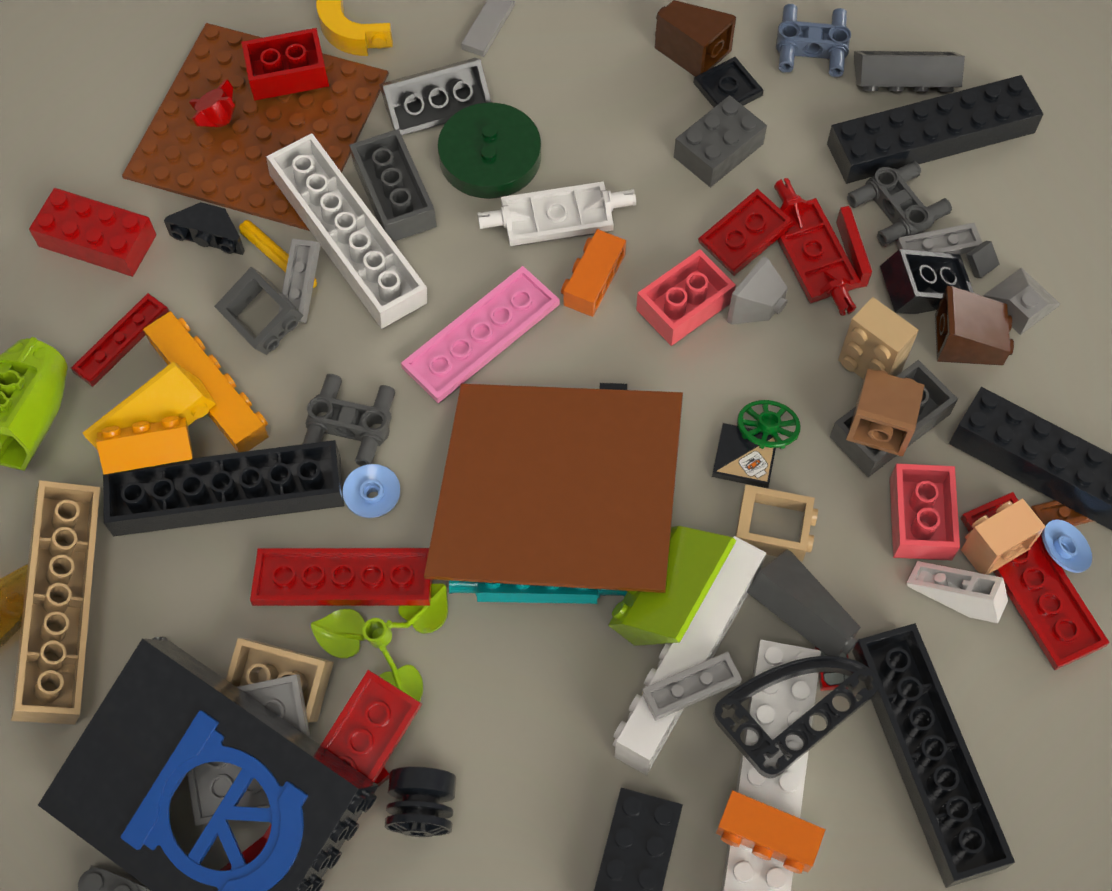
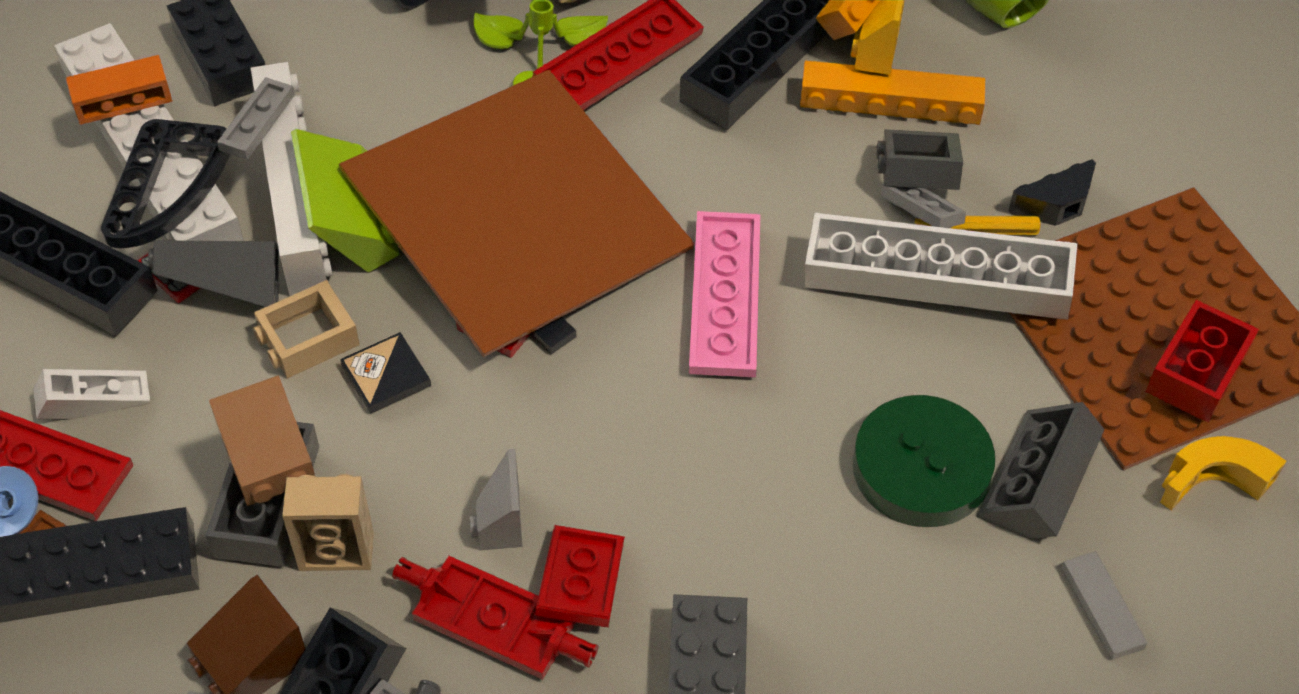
camera: 135 degrees right, 10 degrees down
(93, 231) = (1137, 120): red brick -> none
(118, 340) = (1002, 81): red tile -> none
(214, 107) = (1200, 275): red piece -> none
(349, 418) = (748, 148): dark grey piece -> none
(371, 479) = (668, 116): light blue dish -> none
(393, 185) = (957, 341): dark grey brick -> none
(557, 213) = (786, 448): white plate -> none
(593, 272) = (686, 418): orange brick -> none
(685, 297) = (571, 452): coral brick -> none
(769, 424) = (385, 407): green wheel -> none
(853, 245) = (453, 651): red tile -> none
(924, 512) = (168, 426): coral brick -> none
(1002, 536) = (68, 428): light nougat brick -> none

